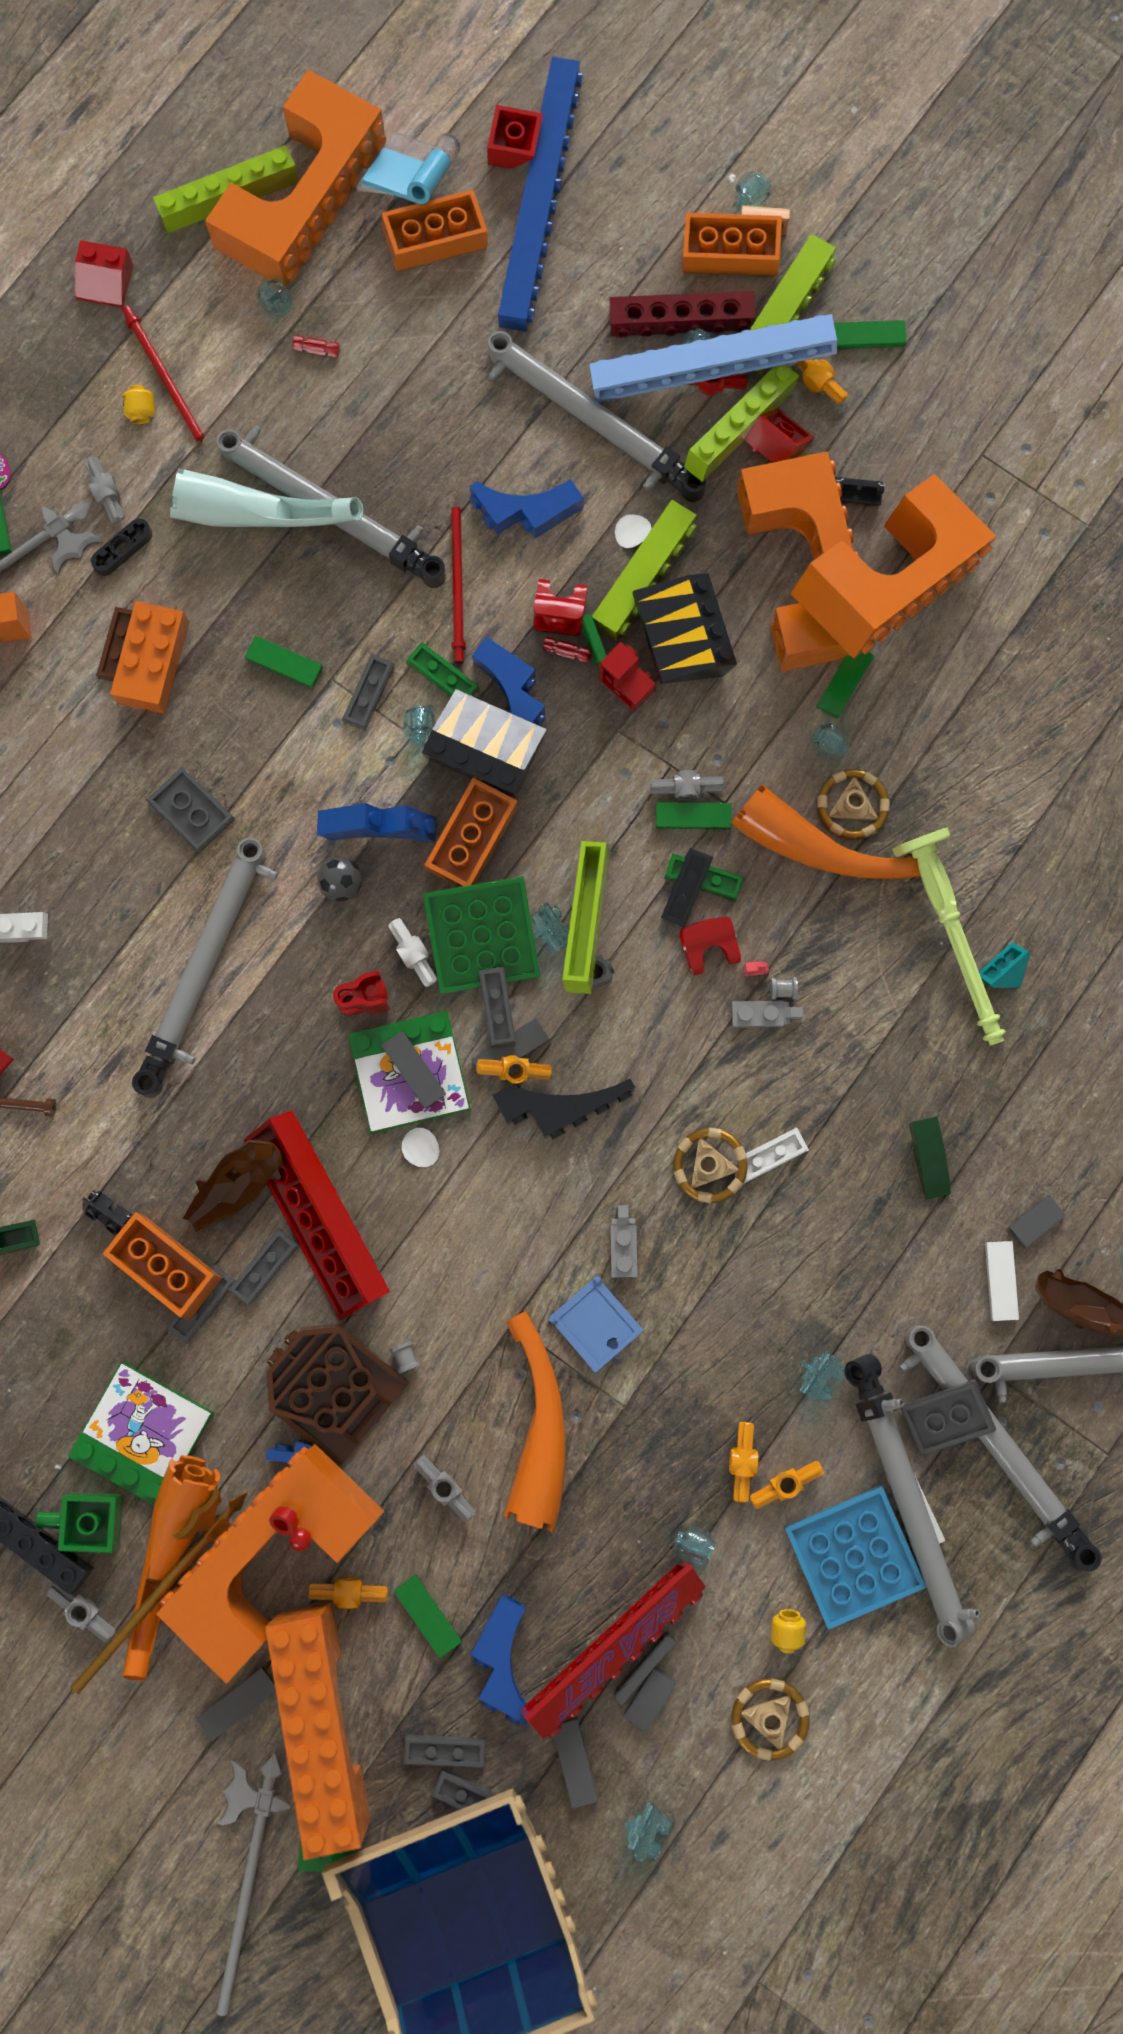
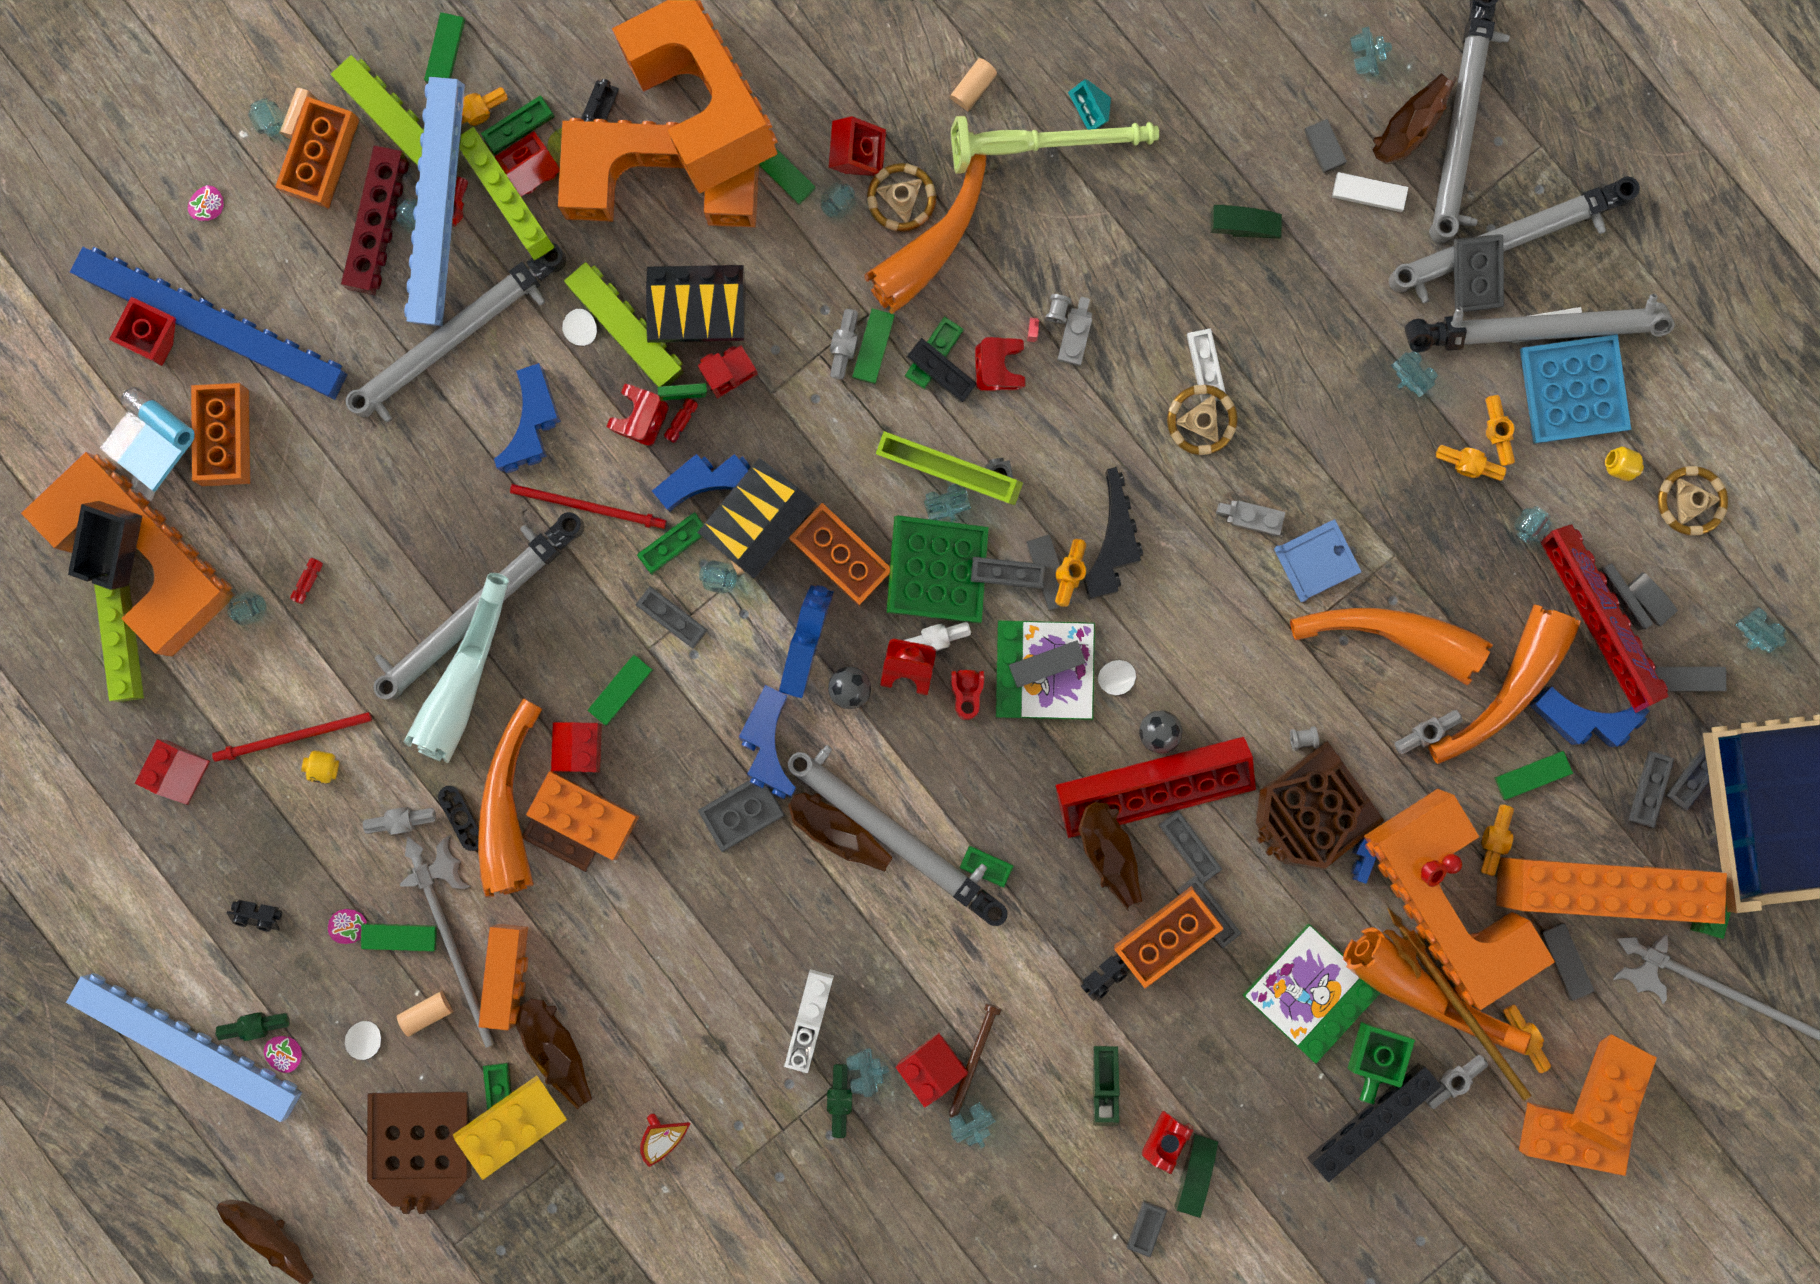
camera: 75 degrees left, 5 degrees up
(48, 1760) = (1549, 1138): none -> orange brick
(102, 1786) = (1612, 1093): none -> orange brick
(103, 586) = (500, 840): none -> orange brick
(143, 1688) = (1536, 1043): none -> light orange axle
(193, 1075) = (997, 869): none -> green tile
(194, 885) = (820, 820): none -> reddish brown piece
(216, 636) = (576, 747): none -> red slope
(272, 805) = (760, 735): none -> blue arch
(294, 145) = (105, 545): none -> black piece
(372, 1203) = (1160, 731): none -> dark grey piece
(380, 931) = (908, 661): none -> red piece
(557, 1587) = (1537, 657): none -> orange brick
(654, 162) = (206, 204): none -> sticker
(816, 421) = (517, 125): none -> green tile
(890, 746) = (856, 147): none -> red slope
(990, 845) = (974, 84): none -> light nougat brick

